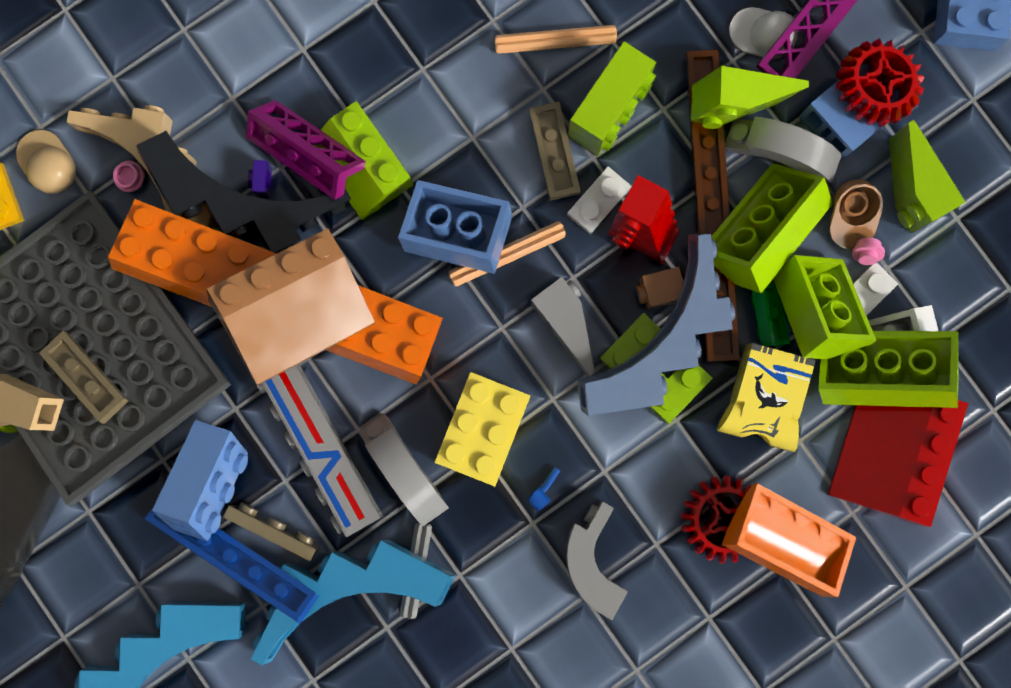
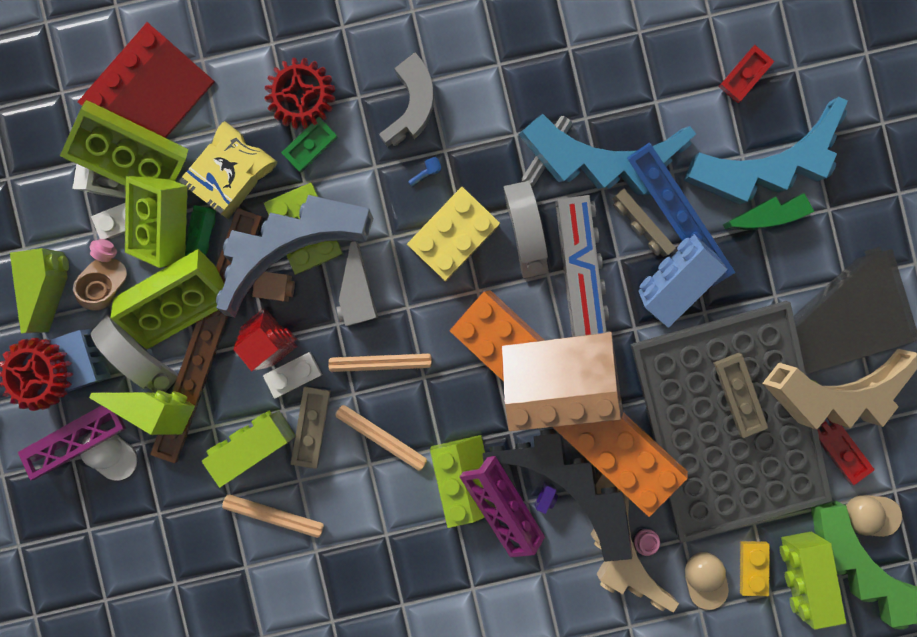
camera: 160 degrees left, 5 degrees up
(127, 604) = (771, 214): none -> green slope
(455, 226) = (410, 397): medium blue brick -> none
(471, 171) = (381, 437): none -> light nougat axle
(688, 465) = (309, 145): none -> green plate
(790, 541) = (257, 55): orange slope -> none

